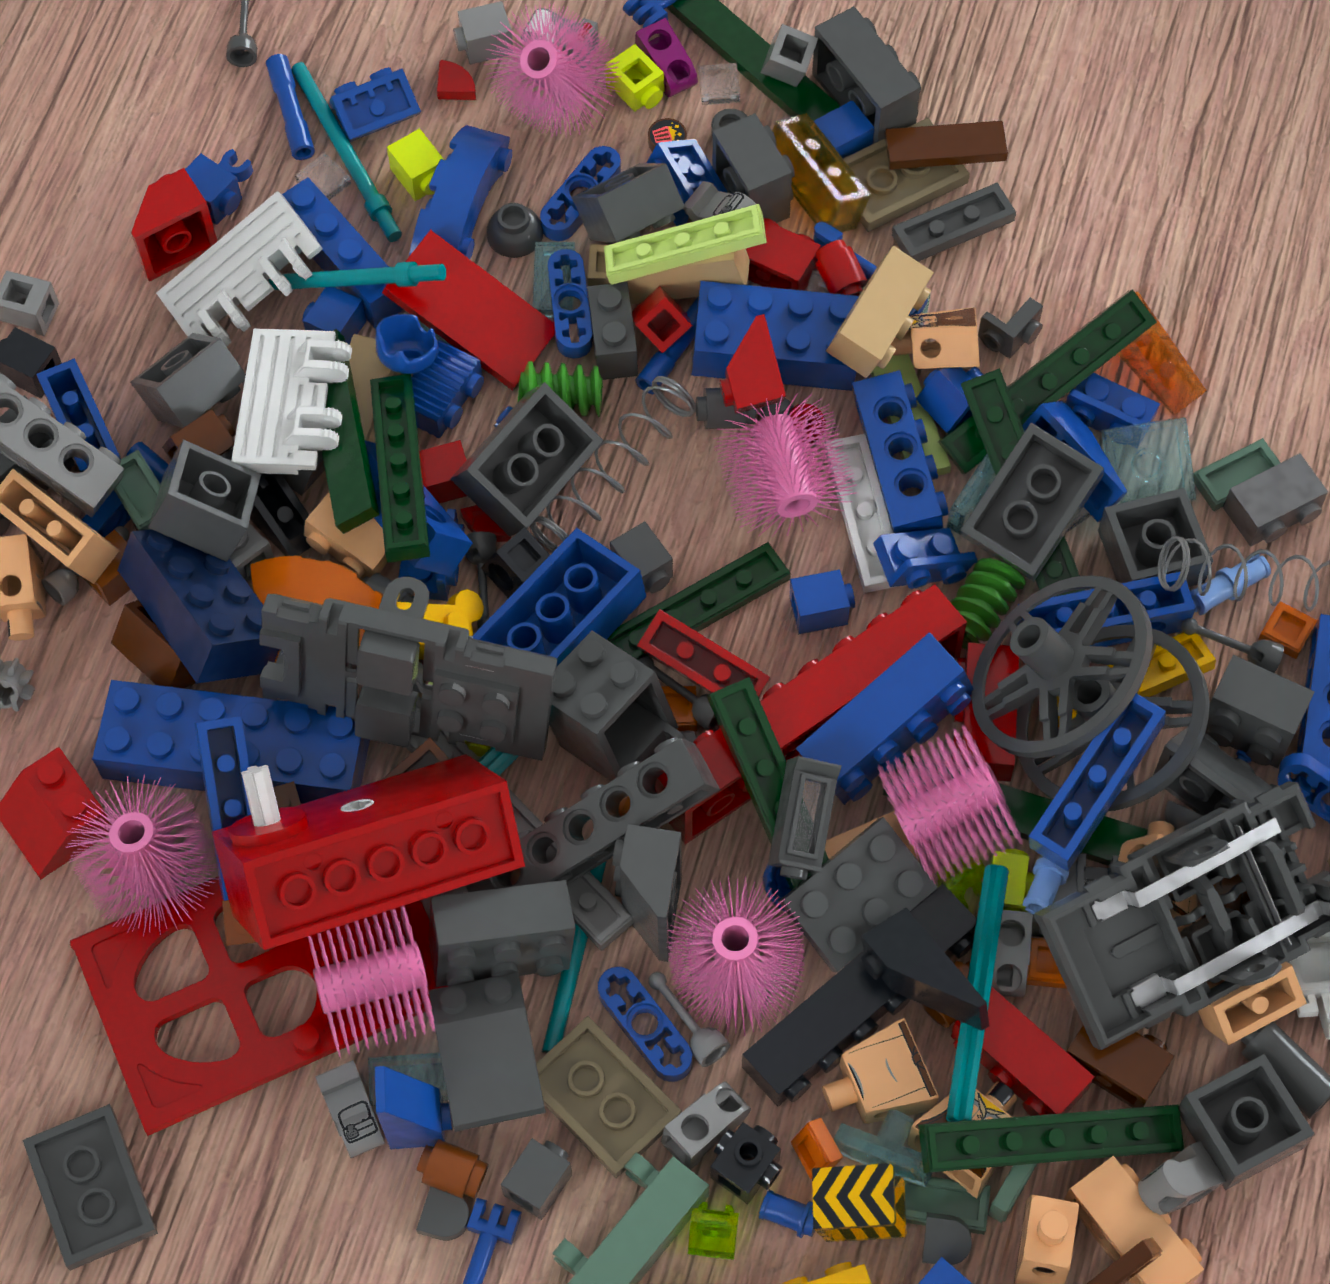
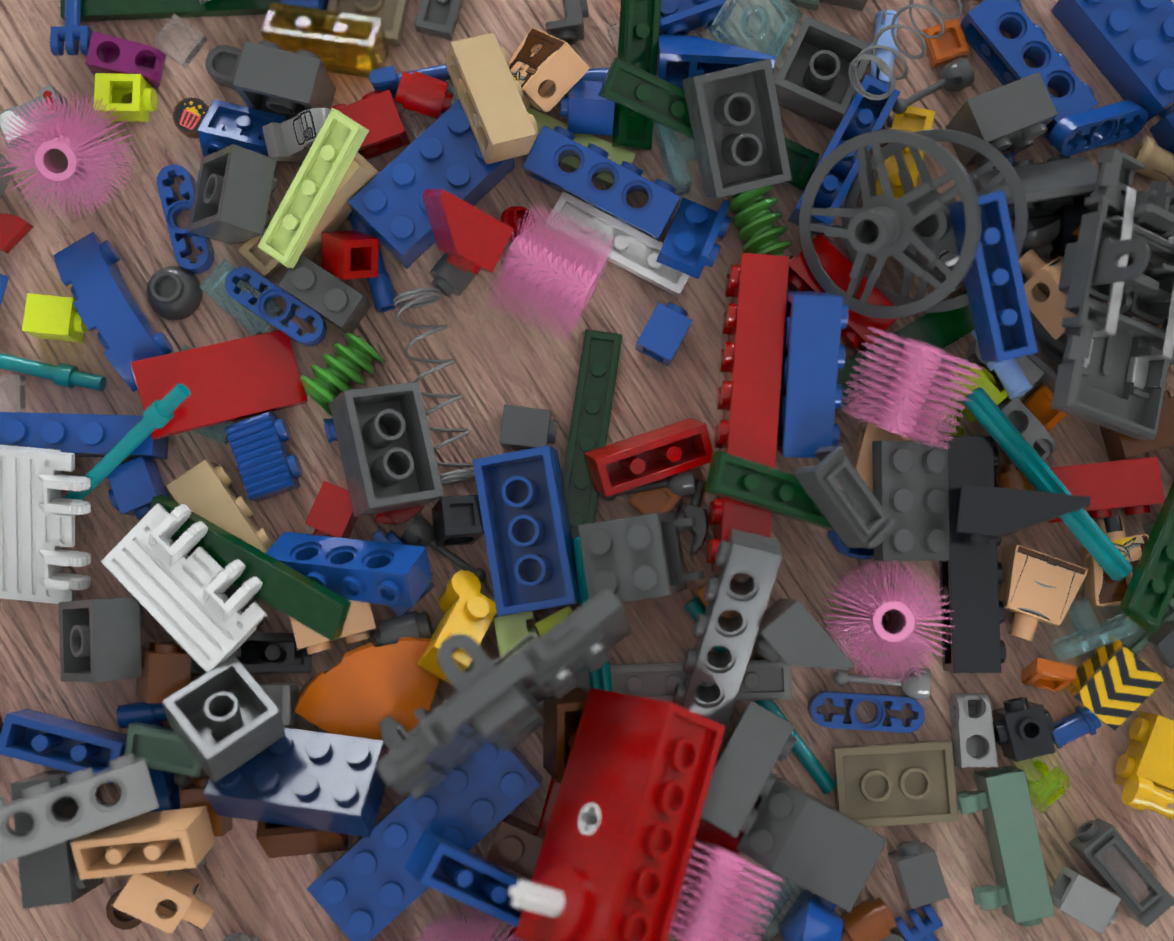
camera: 50 degrees left, 20 degrees up
(399, 469) = (323, 554): dark green tile -> none
(405, 345) = (214, 460): blue hair -> none

